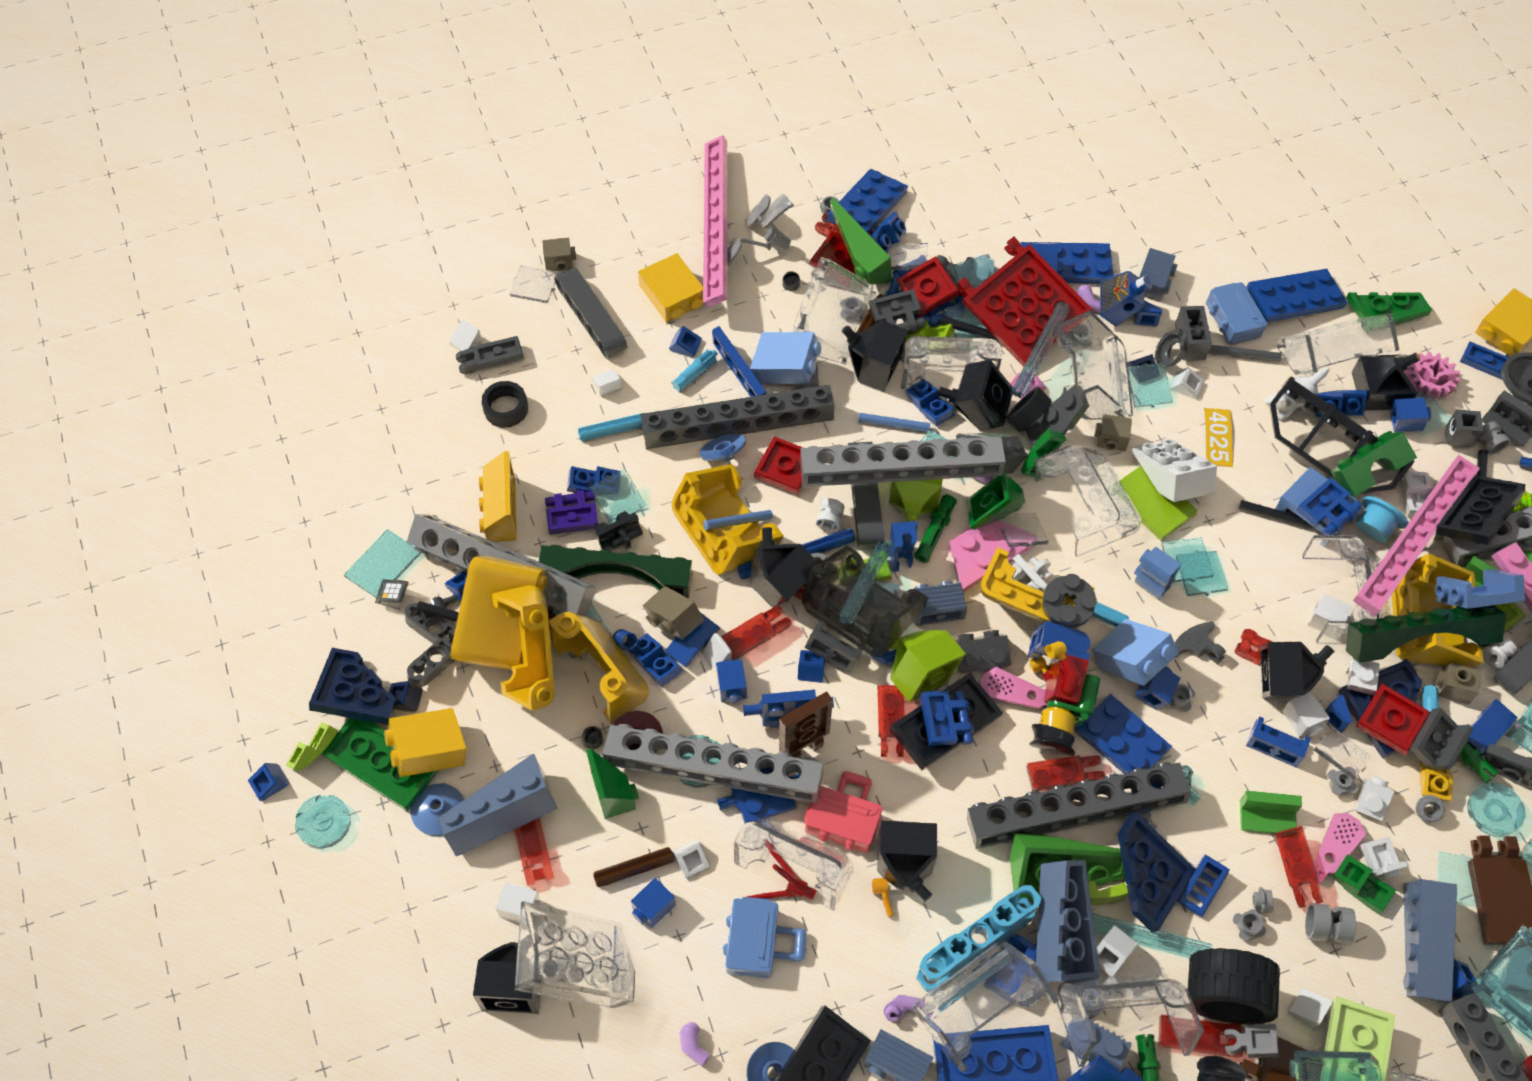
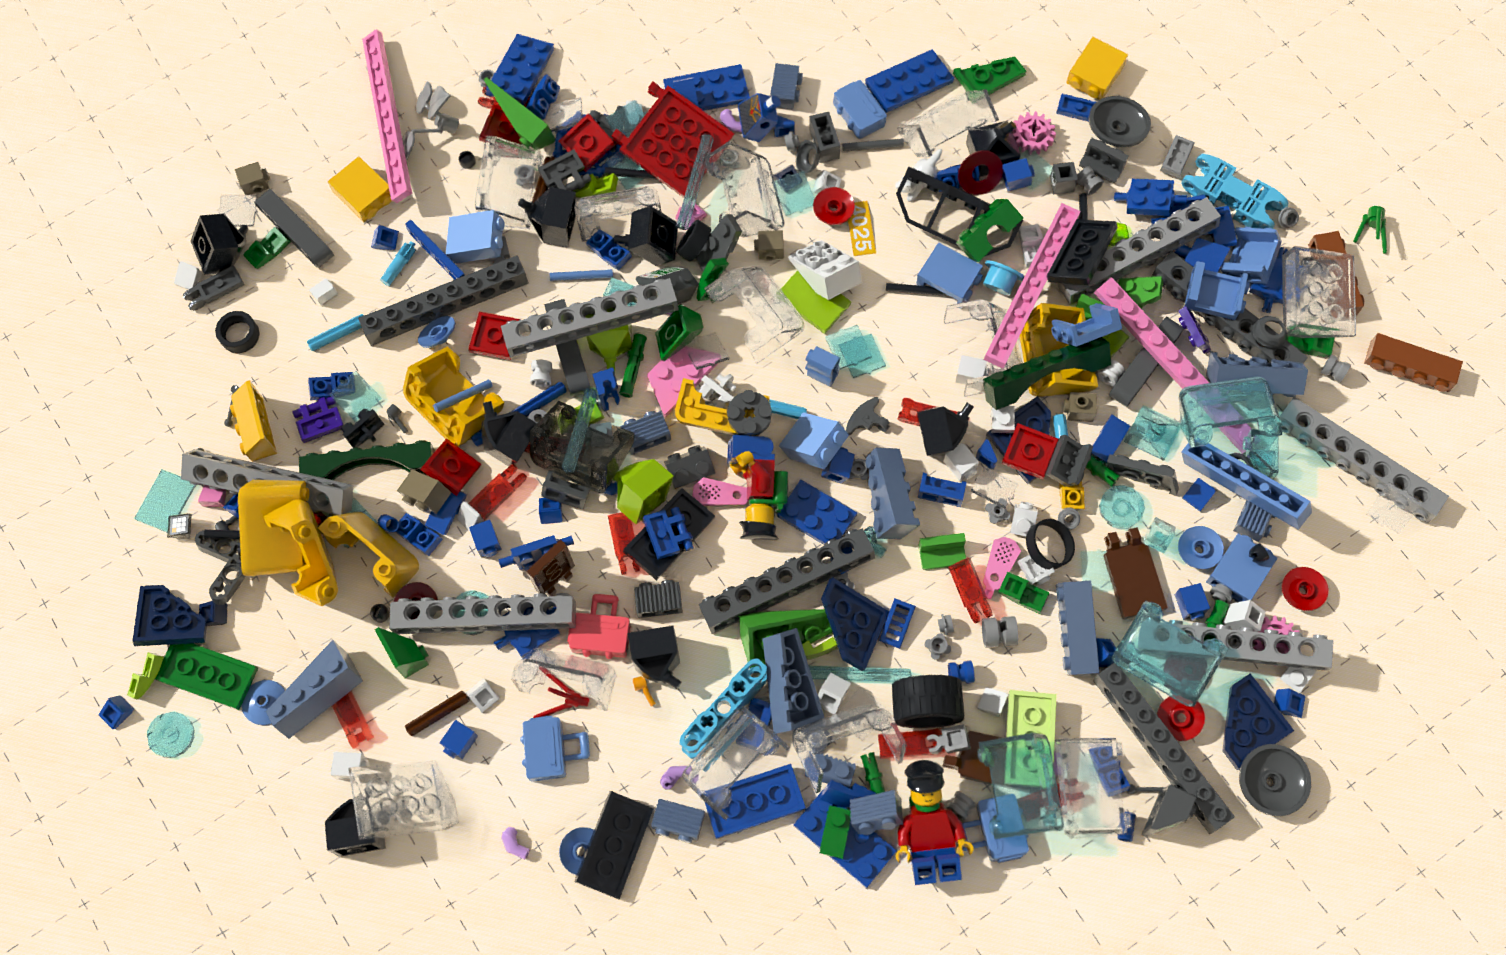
camera: 10 degrees left, 10 degrees up
(425, 742) = (239, 650): yellow brick -> none
(435, 570) = (212, 497): none -> bright pink slope
(472, 494) = (228, 422): none -> dark grey hinge
(506, 308) = (217, 242): none -> black piece
(554, 329) = (263, 252): none -> green slope
(655, 522) = (393, 411): none -> dark grey hand
(710, 592) = (451, 466): none -> red plate
(920, 793) = (658, 599): none -> dark grey brick
(1062, 771) = (772, 555): clear red hinge -> none
(1154, 331) = (792, 141): none -> light grey plate
(1195, 399) = (833, 198): none -> red dish
(1216, 734) = (890, 494): none -> sand blue wedge
(1283, 958) = (963, 671): none -> blue wheel
(1326, 500) = (951, 274): blue plate -> none
(1366, 386) = (977, 158): none -> dark red gear
(1423, 827) = (1064, 533): none -> black tyre

